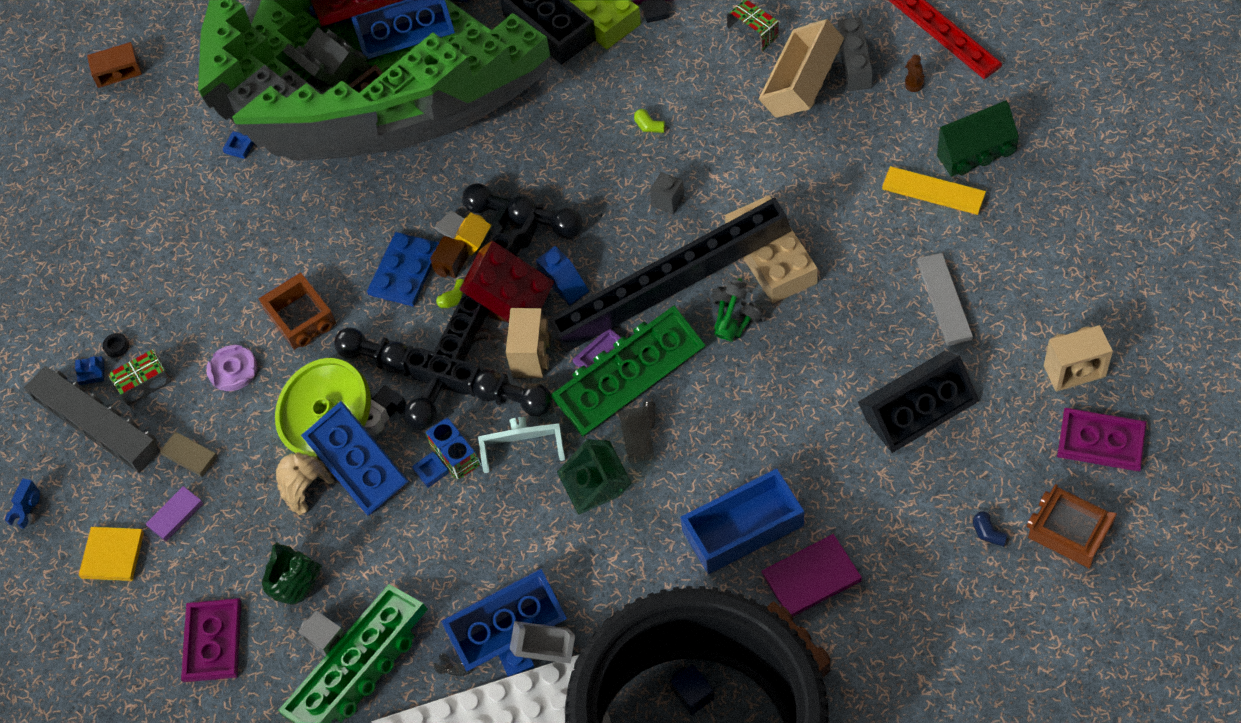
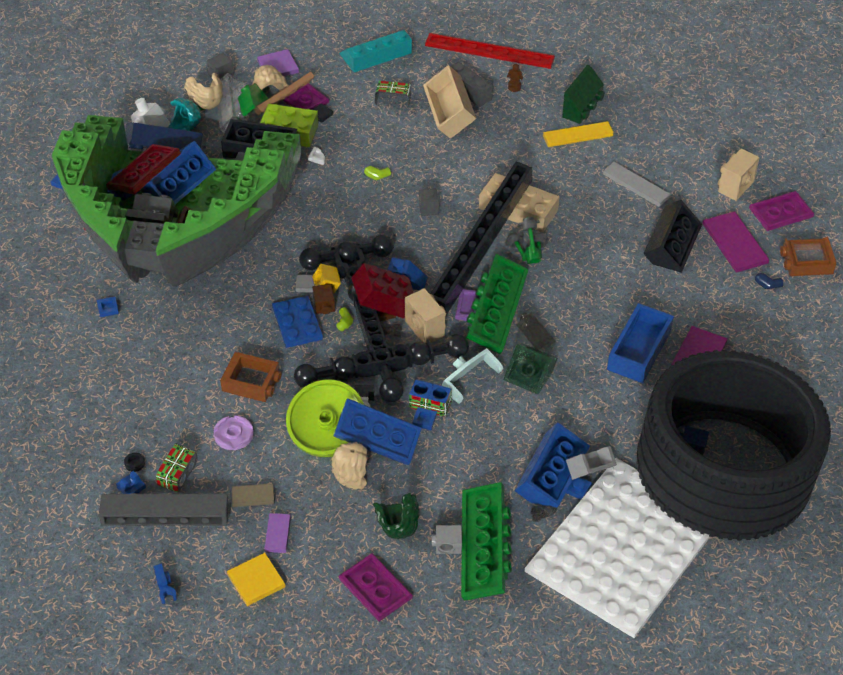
camera: 45 degrees left, 10 degrees down
(602, 65) = (317, 156): none -> white tile
(998, 449) = (735, 241): none -> magenta tile

